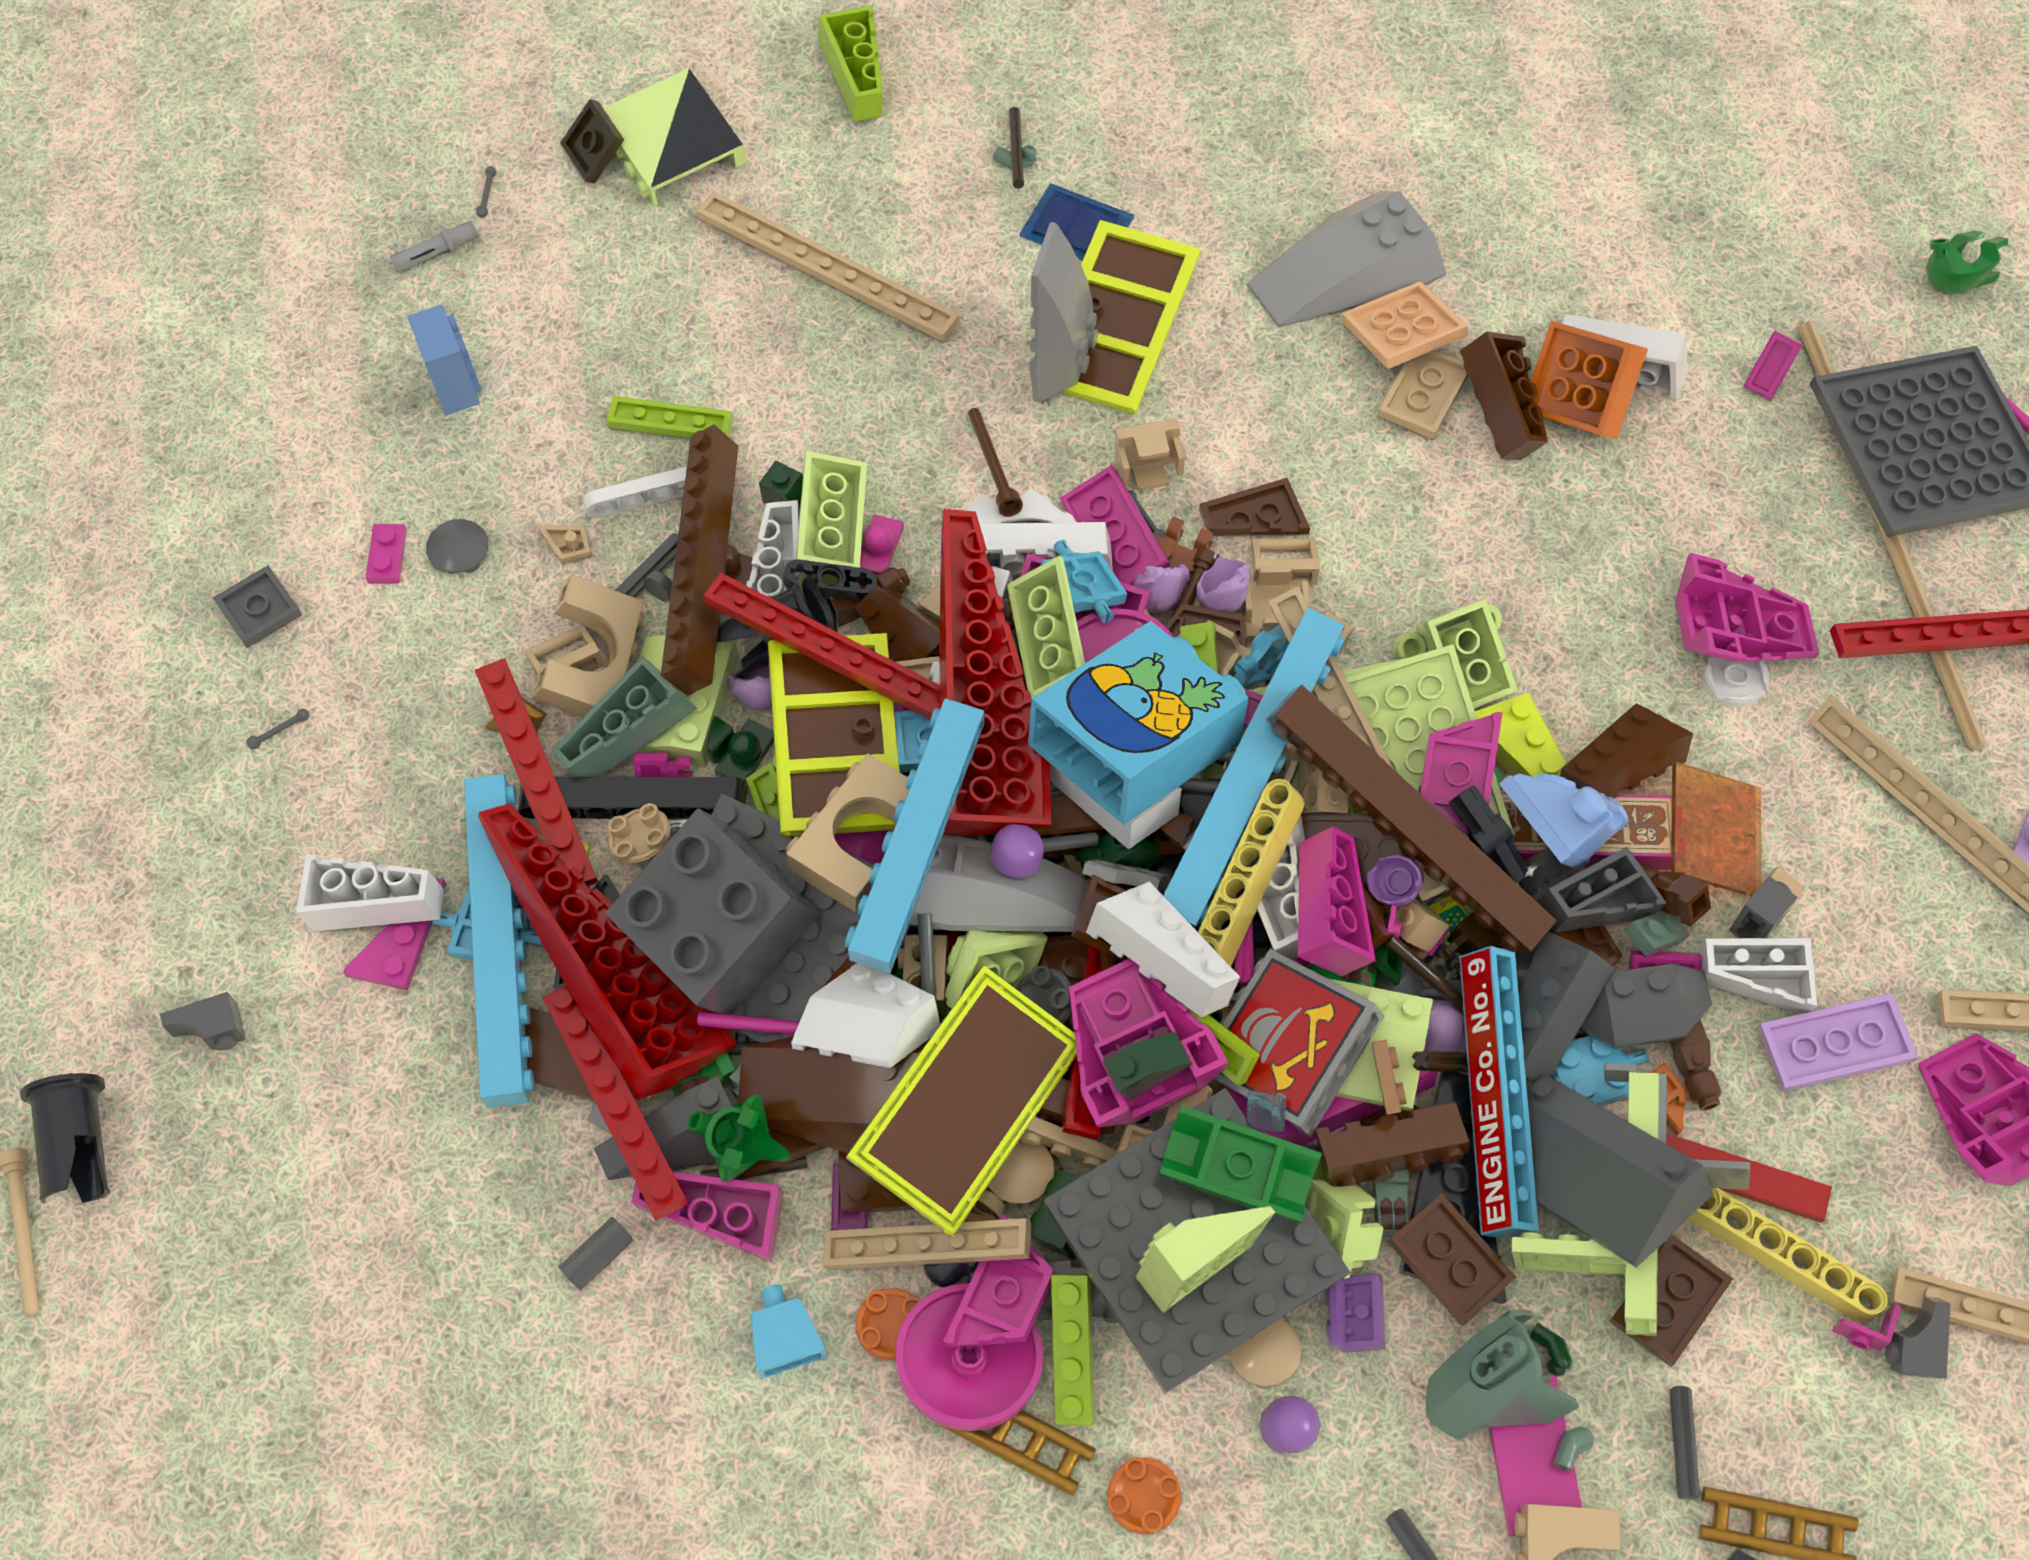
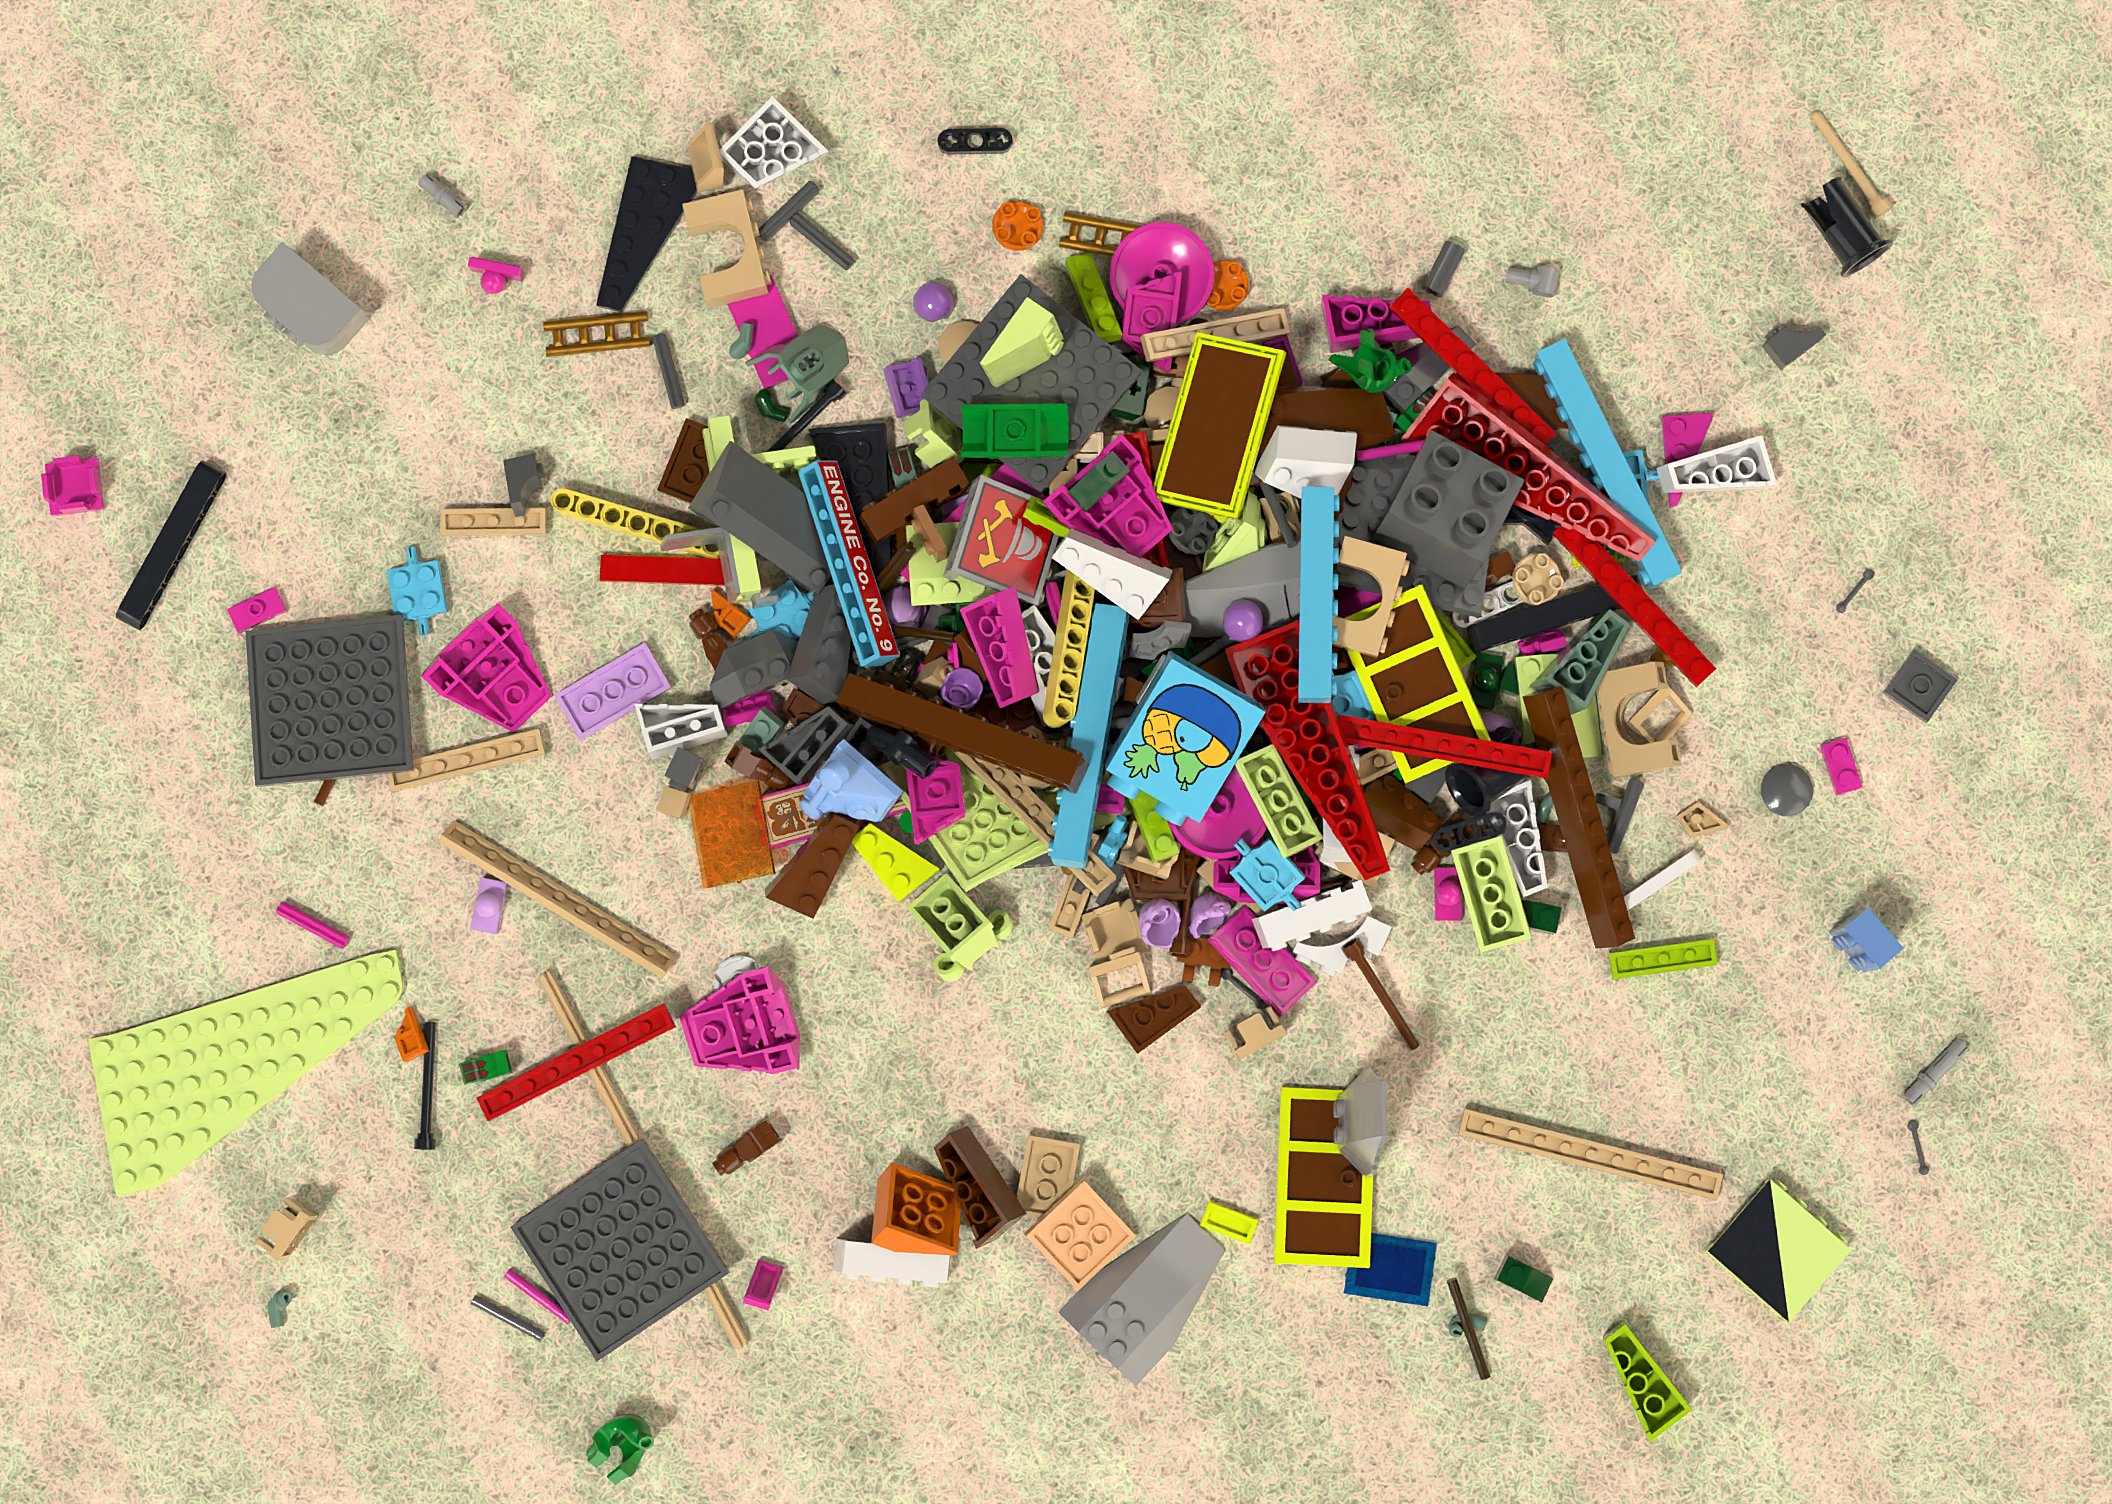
camera: 160 degrees right, 20 degrees up
(479, 1199) = (1540, 280): none -> light grey pin
(592, 141) = (1843, 1217): dark brown plate -> none
(783, 1334) = (1293, 254): medium azure torso -> none
(945, 179) = (1523, 1278): none -> dark green slope
(1235, 305) = (1229, 1222): none -> neon yellow tile
(1266, 1110) = (1007, 481): clear light blue tile -> none
(1451, 1259) = (853, 438): reddish brown plate -> none
(1456, 1337) = (832, 393): none -> black piece
(1759, 503) = (747, 1148): none -> reddish brown piece
(1866, 1338) = (560, 476): dark pink bracket -> none

